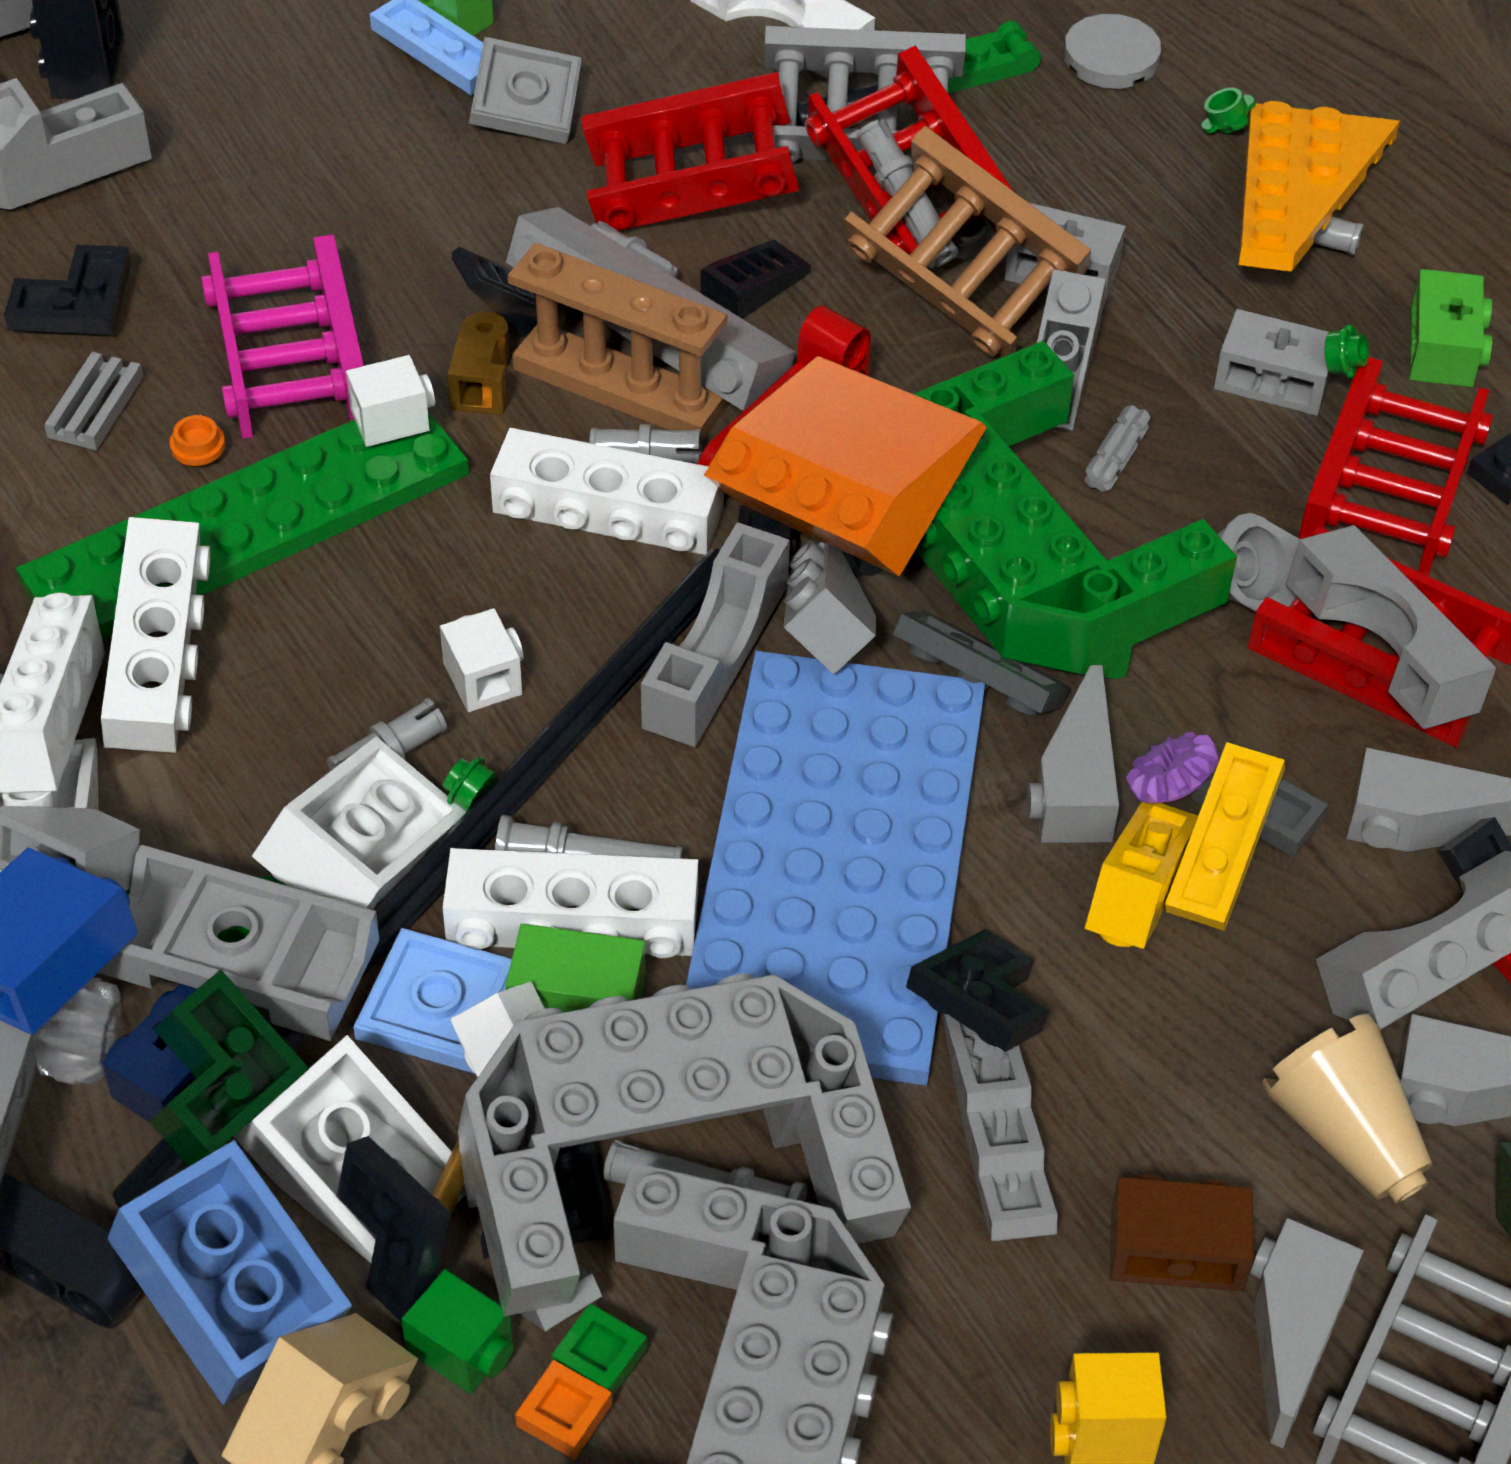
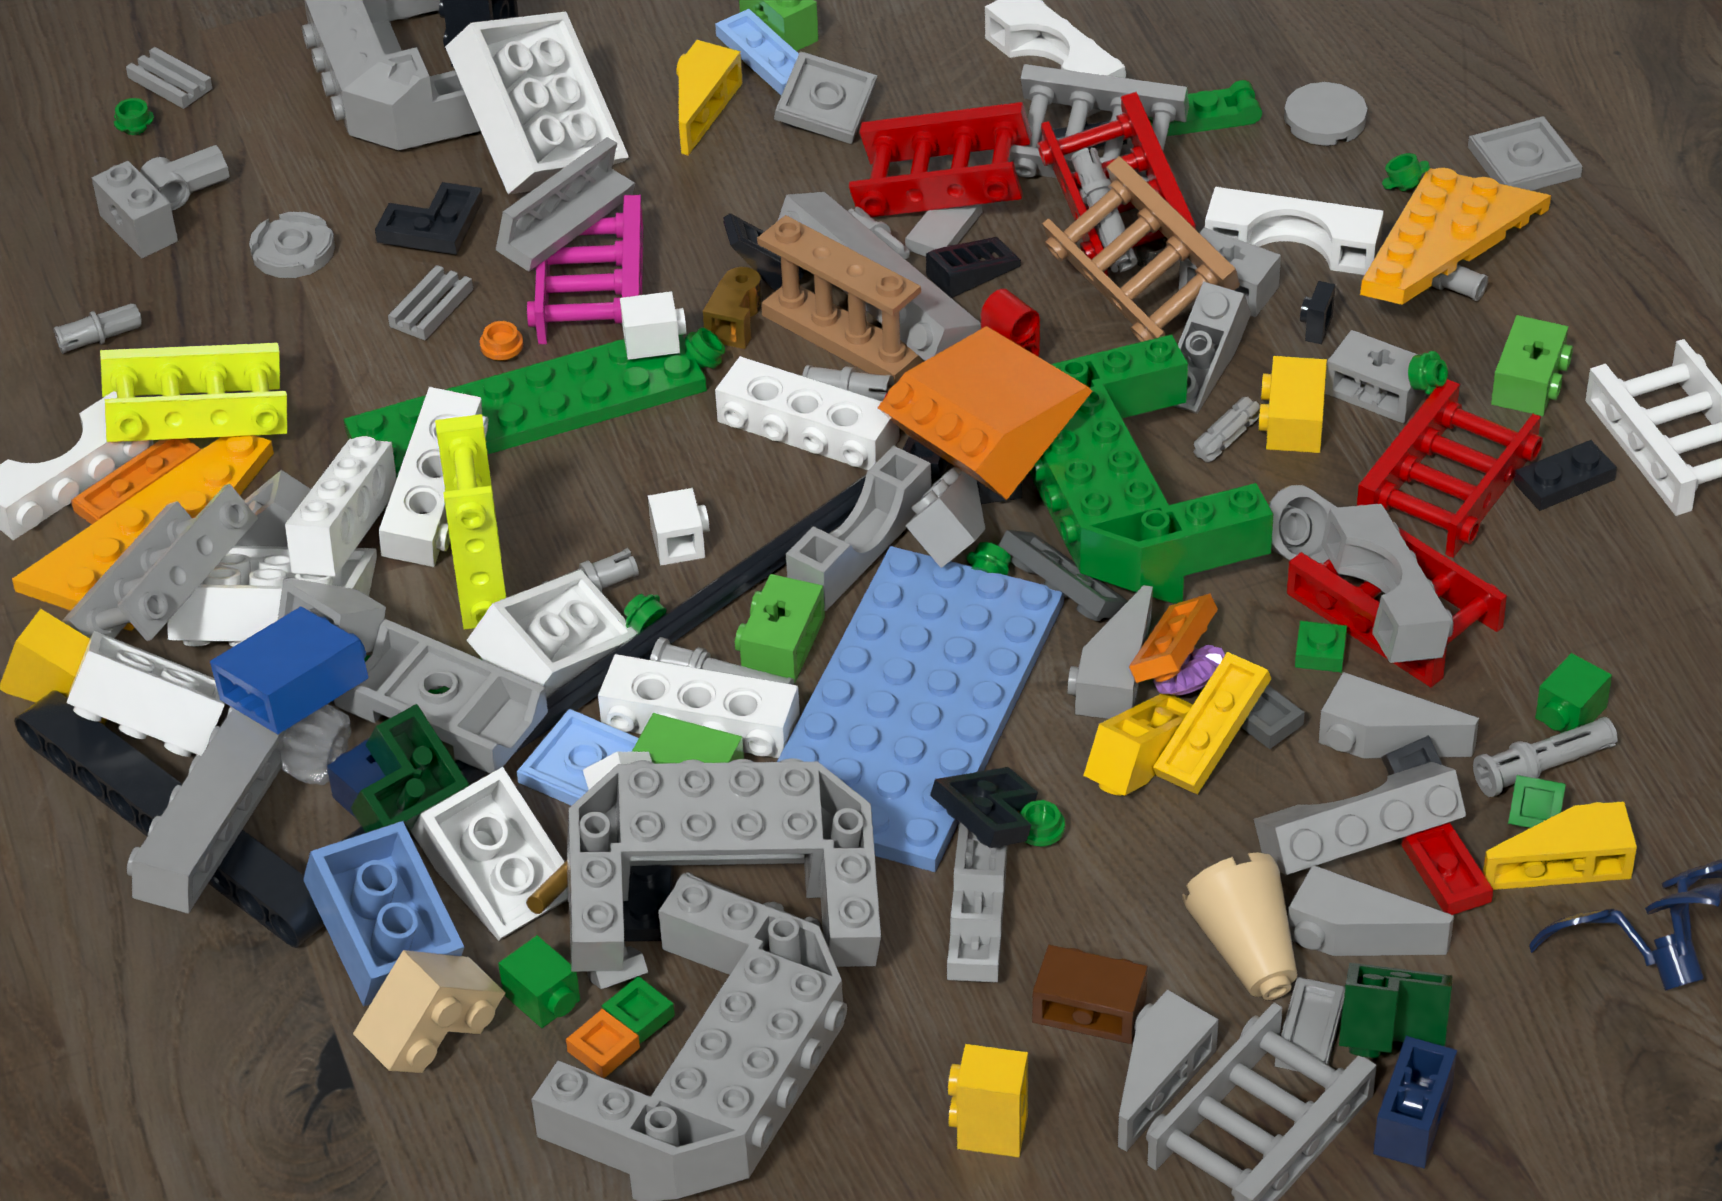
camera: 15 degrees right, 5 degrees down
(175, 129) = (532, 96): none -> white slope
(230, 692) = (470, 515): none -> neon yellow fence
(243, 262) = (563, 207): none -> light grey fence
(376, 87) = (707, 83): none -> yellow slope
(404, 1217) = (513, 893): black plate -> none
(457, 420) = (704, 347): none -> green plate
(648, 779) = (781, 626): none -> bright green brick
(705, 237) = (941, 228): none -> light grey tile
(885, 653) = (989, 558): none -> green plate
(1054, 994) = (1046, 822): none -> green plate
(1146, 731) = (1173, 639): none -> orange plate
(1181, 193) = (1341, 233): none -> white arch
(1182, 290) = (1318, 312): none -> black plate
(1191, 407) = (1295, 404): none -> yellow brick
(1313, 712) = (1320, 646): none -> green plate
(1352, 76) = (1525, 155): none -> light grey tile
(1466, 1220) = (1313, 1018): none -> light grey tile

